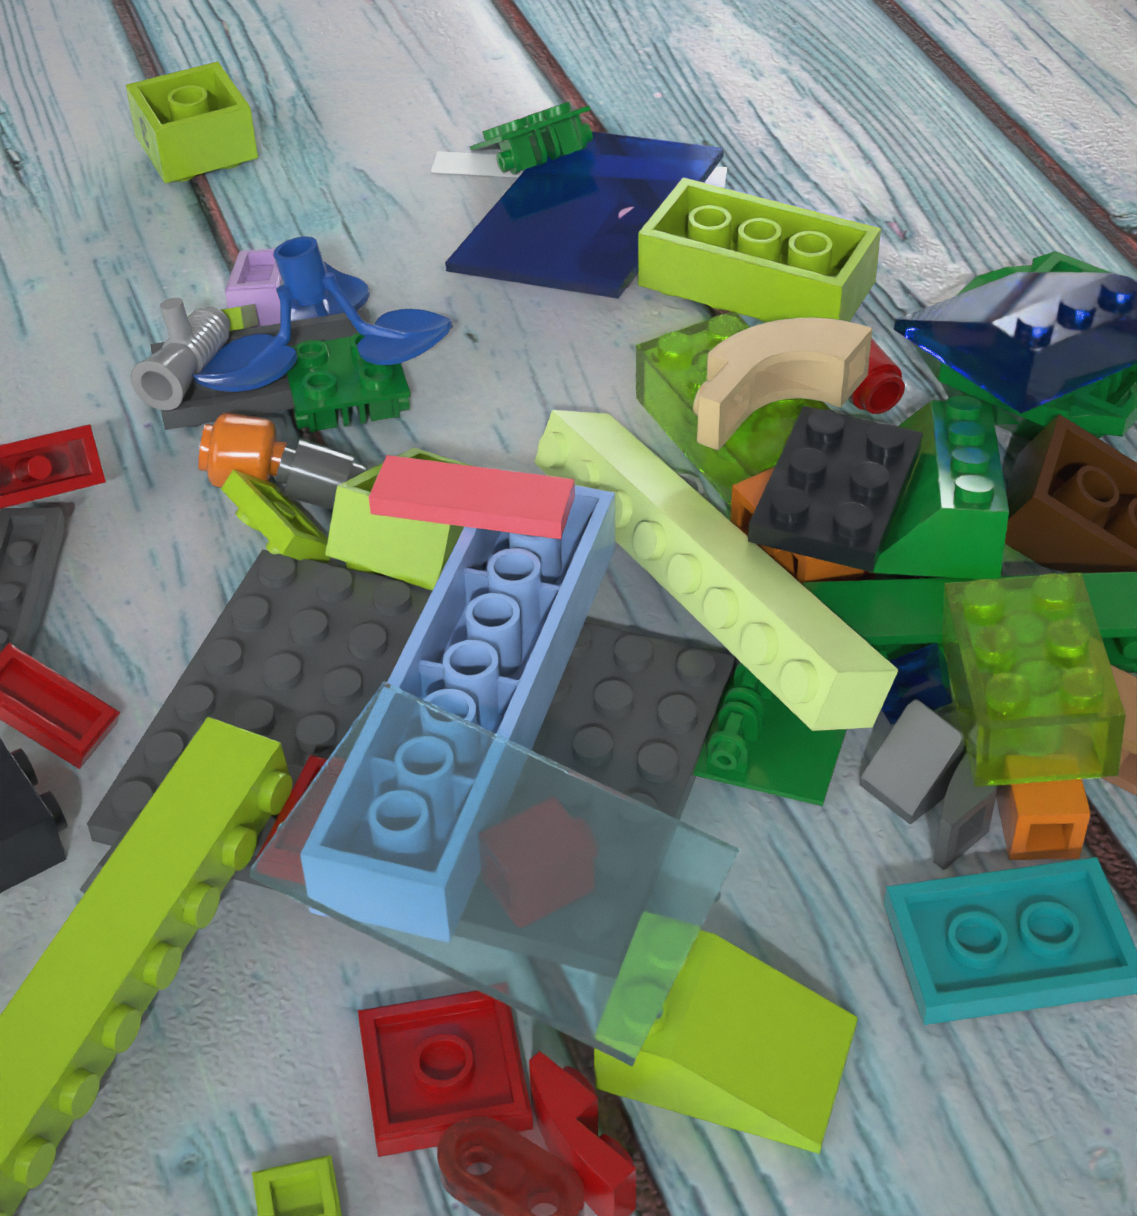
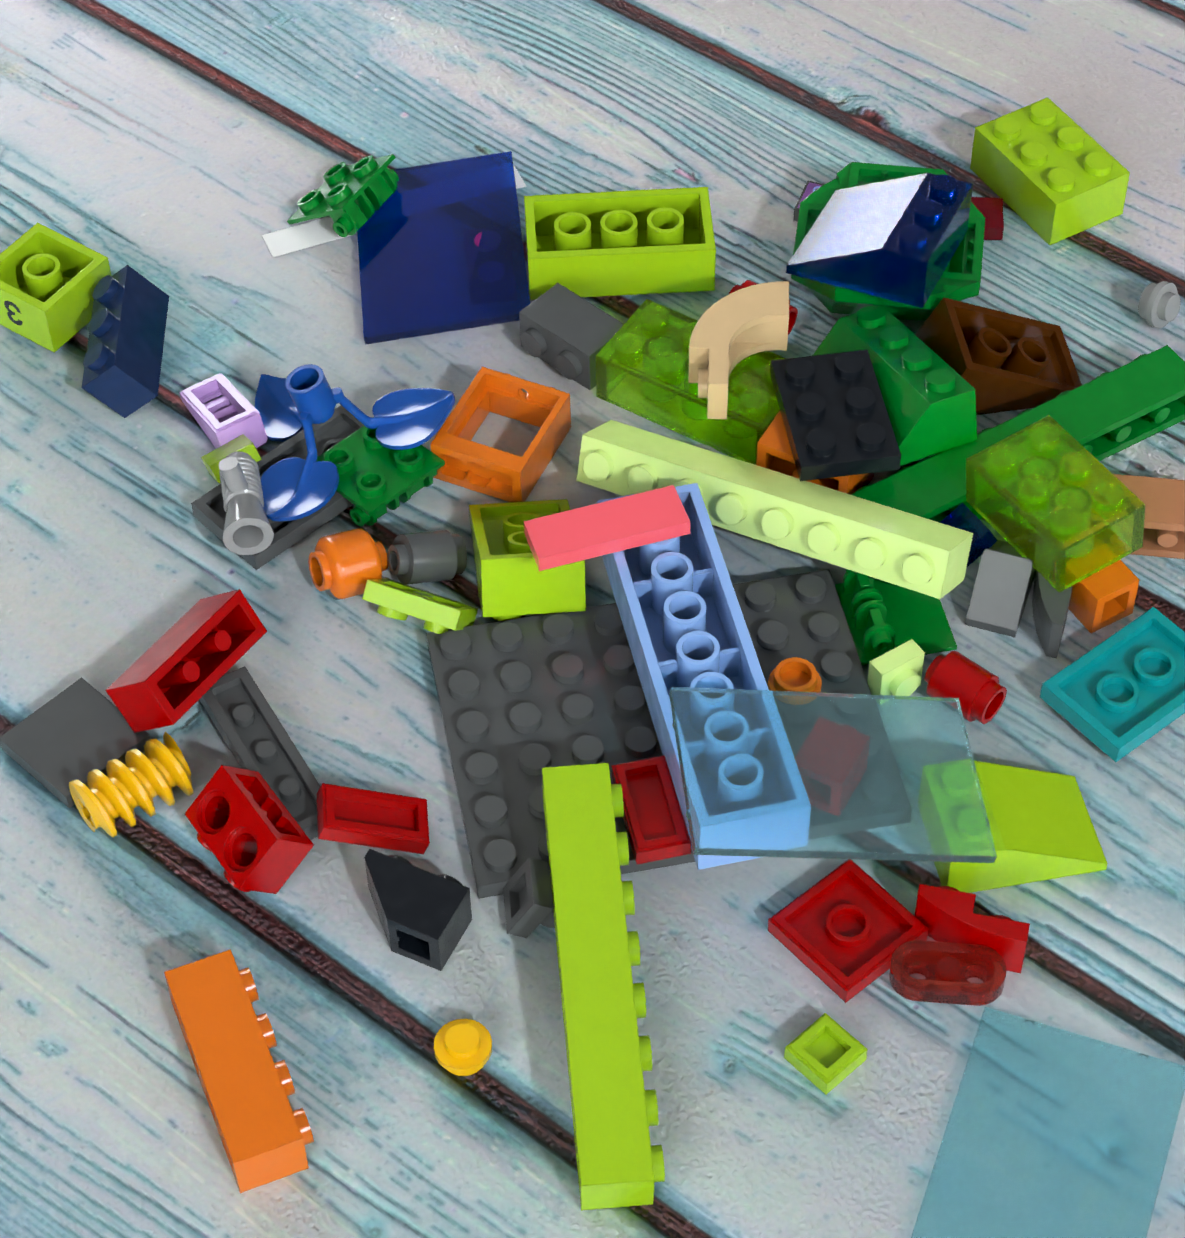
camera: 30 degrees left, 5 degrees up
(215, 185) = (125, 341): none -> dark blue brick
(446, 379) = (494, 470): none -> orange window
(585, 750) = (795, 675): none -> orange plate
(634, 312) = (566, 333): none -> dark grey brick
(721, 798) = (897, 670): none -> yellowish green plate
(791, 851) = (962, 678): none -> red brick

